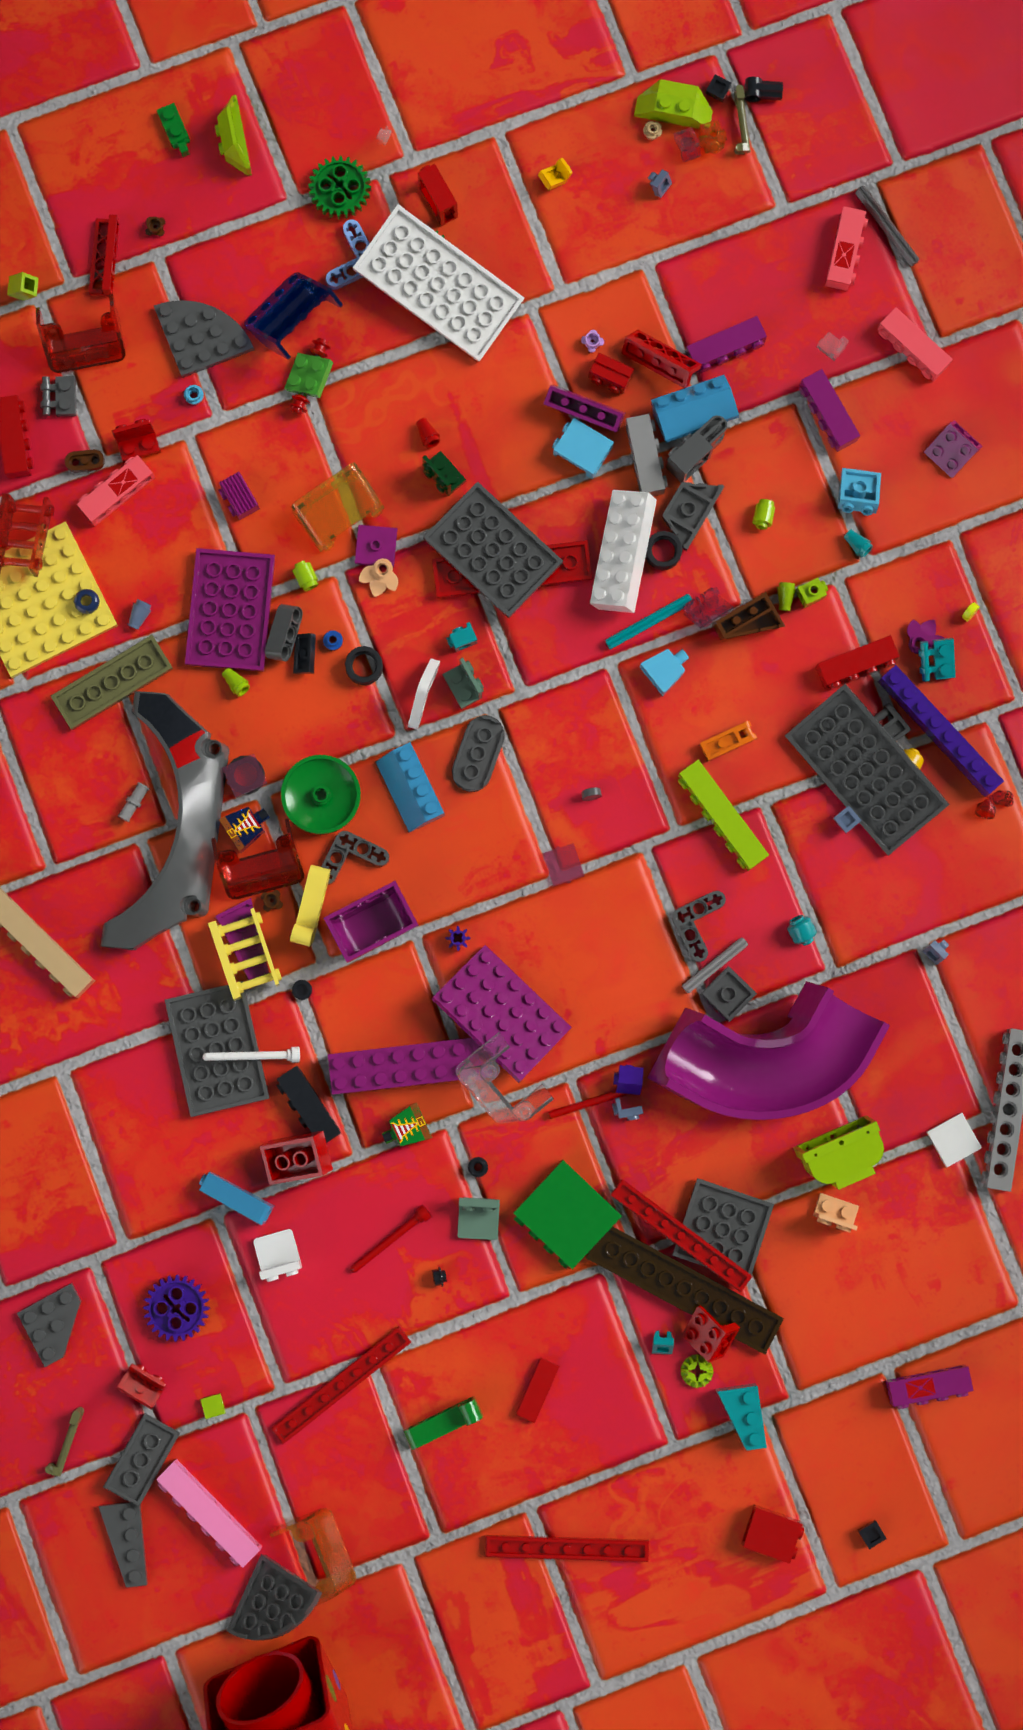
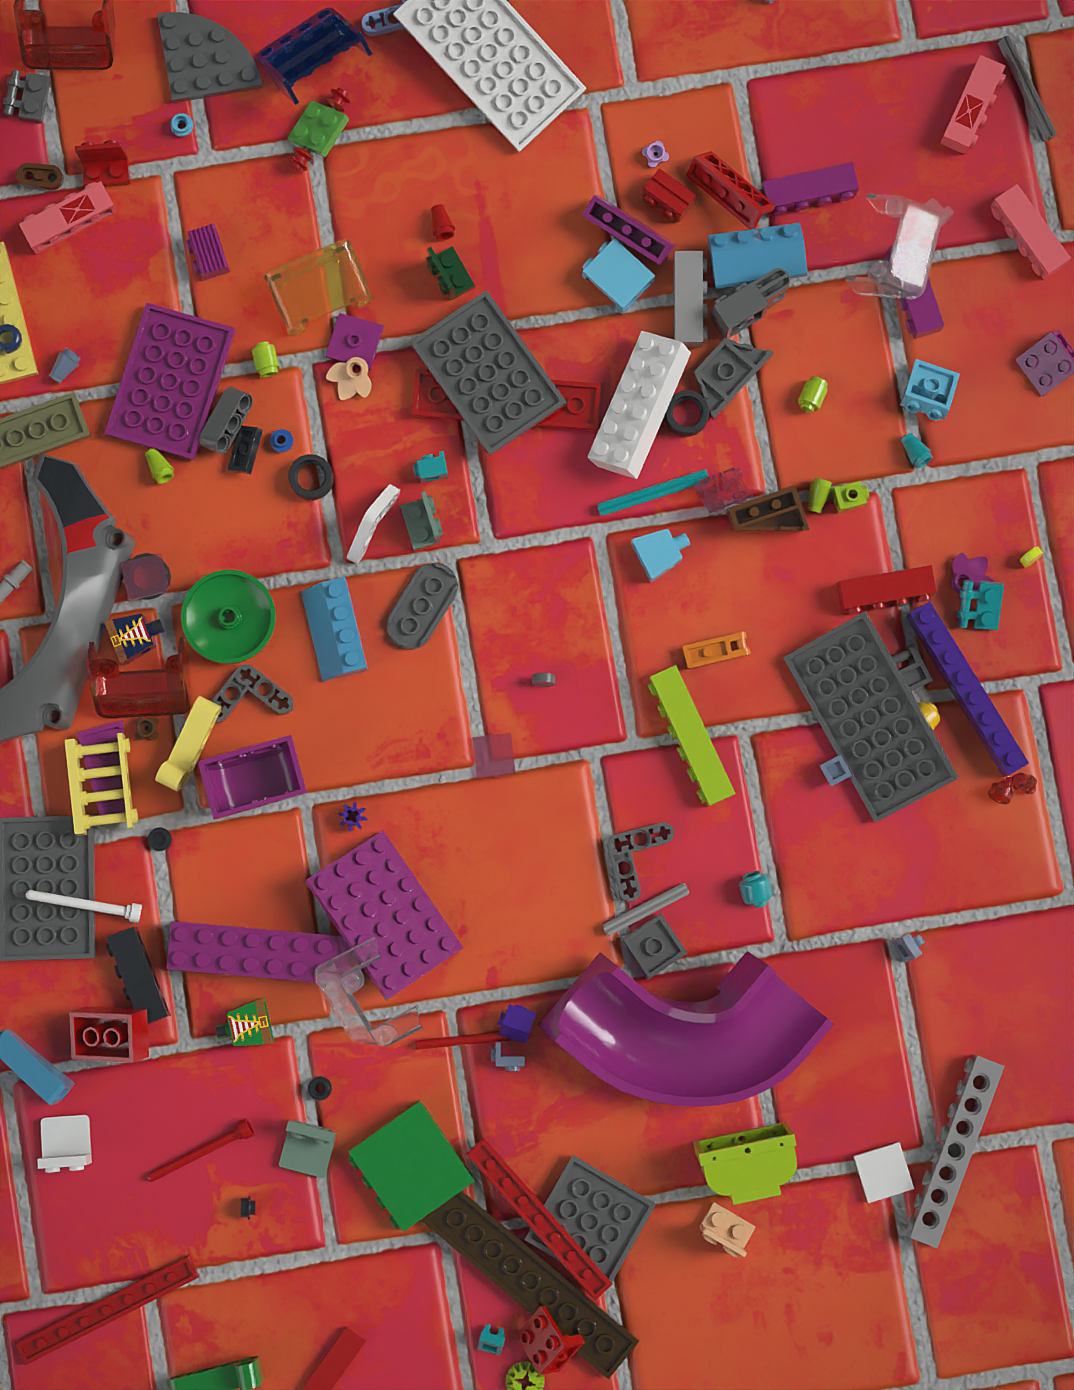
camera: 15 degrees right, 0 degrees up
(822, 380) = (911, 254): none -> clear windscreen

